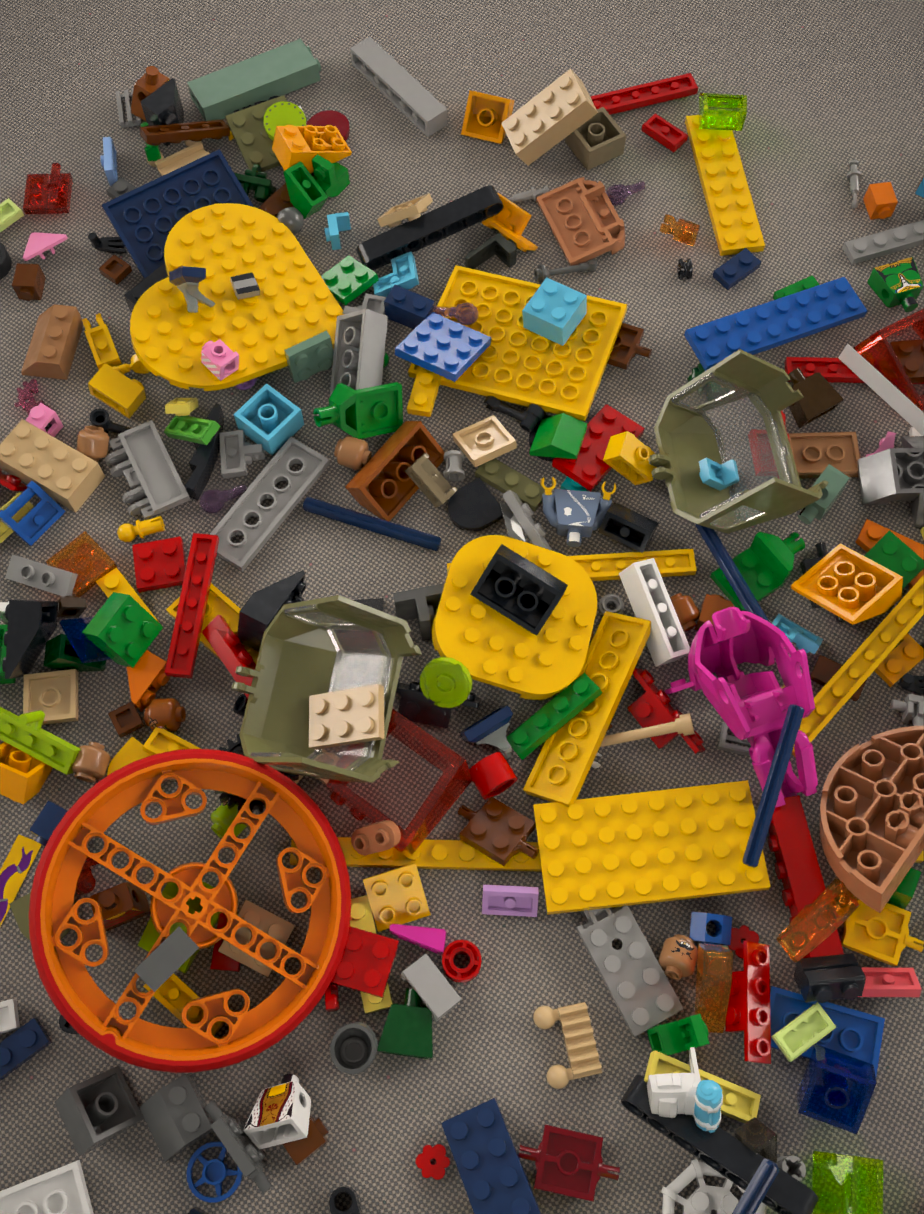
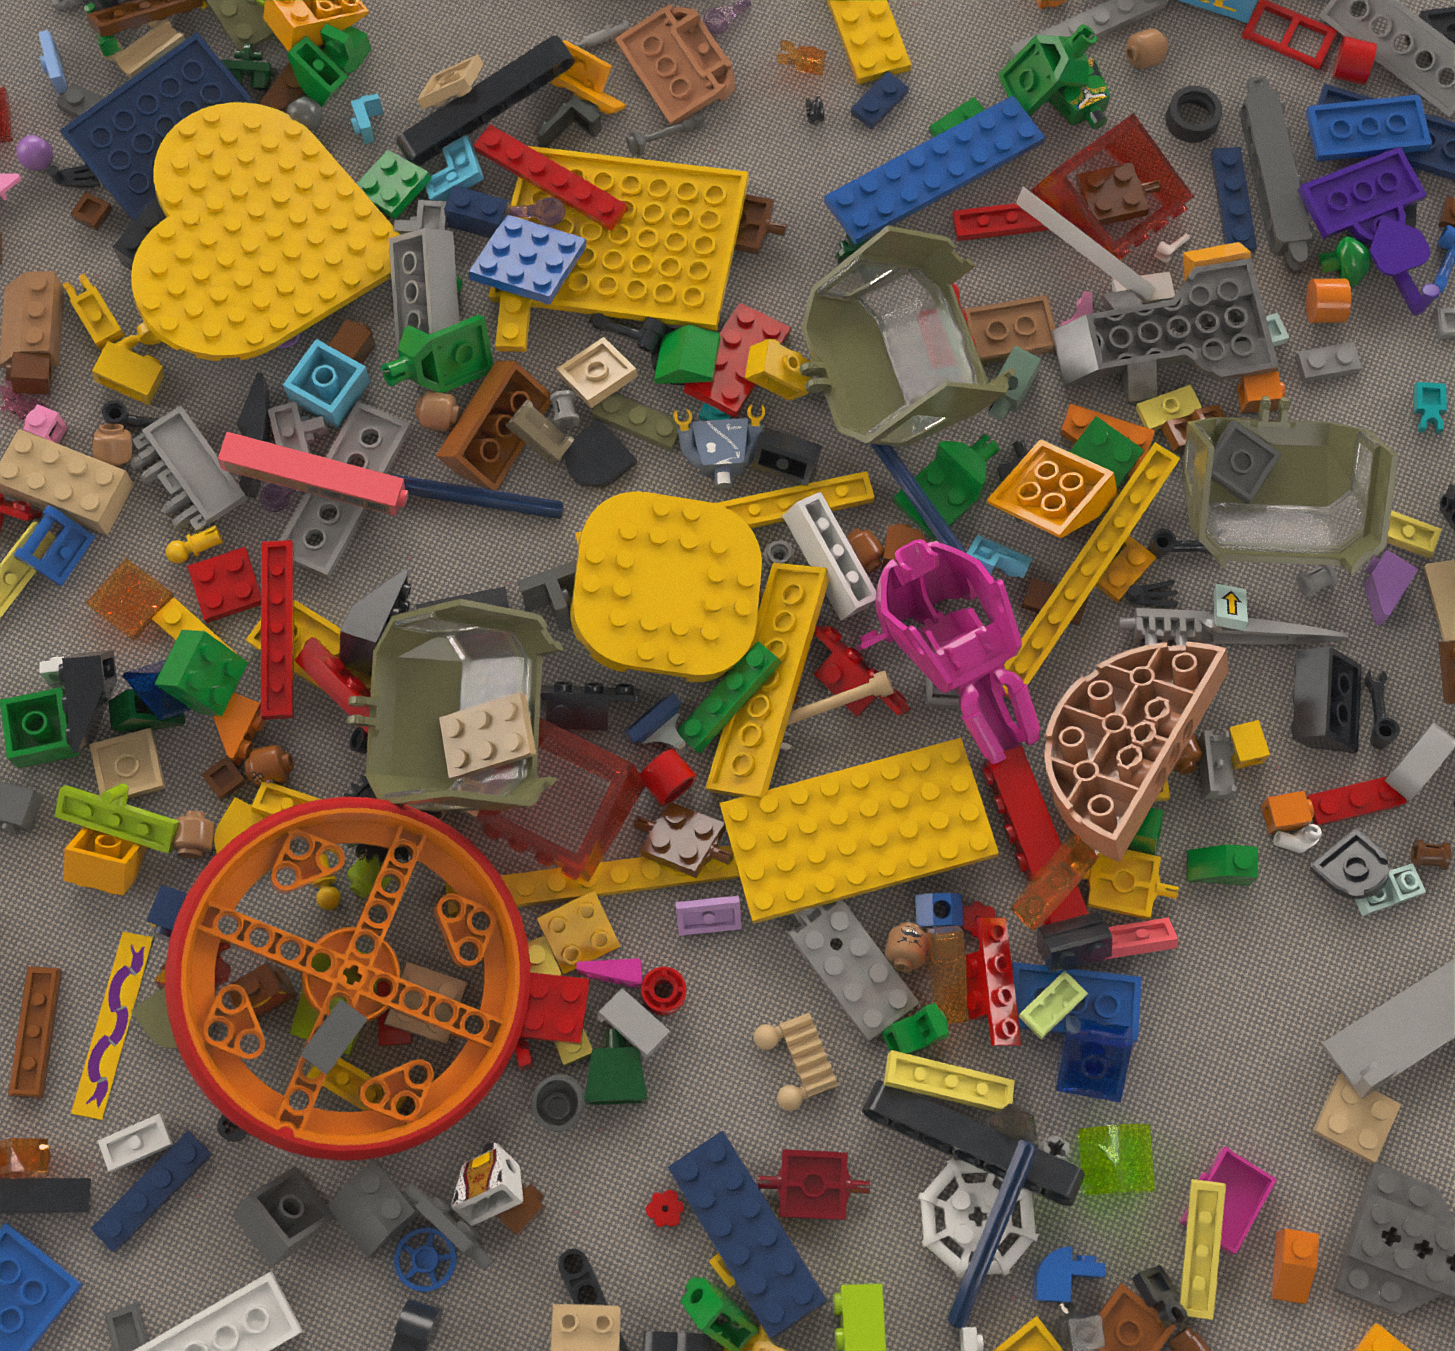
camera: 10 degrees left, 5 degrees up
(41, 576) = (84, 621): light grey plate -> none
(42, 380) = (30, 373): none -> reddish brown brick
(71, 607) = (130, 653): dark brown plate -> none
(81, 222) = (34, 153): none -> medium lavender piece
(181, 406) = (214, 381): light yellow plate -> none
(187, 282) = (197, 225): piece -> none
(192, 429) = (233, 410): bright green tile -> none
(192, 832) = (328, 896): none -> yellow pin
(219, 359) = (257, 325): bright pink brick -> none
(244, 486) = (312, 474): none -> coral brick
(245, 285) = (266, 215): tile -> none
(297, 390) = (354, 341): none -> reddish brown brick
(310, 357) = (364, 294): sand green plate -> none
(370, 837) = (541, 868): nougat plate -> none
(446, 682) = (597, 677): lime tile -> none
(470, 289) = (550, 177): none -> red plate
(512, 525) = (646, 471): dark grey sticker -> none
(519, 589) = (666, 555): black slope -> none
(523, 514) = (658, 459): light grey plate -> none
(554, 311) = (659, 195): medium azure brick -> none
(686, 1095) = (930, 1089): white piece -> none
(718, 475) = (886, 375): medium azure bracket -> none
(773, 785) = (986, 739): dark blue axle -> none
(817, 400) = (993, 258): dark brown torso -> none
(875, 256) = (1046, 66): none -> green plate

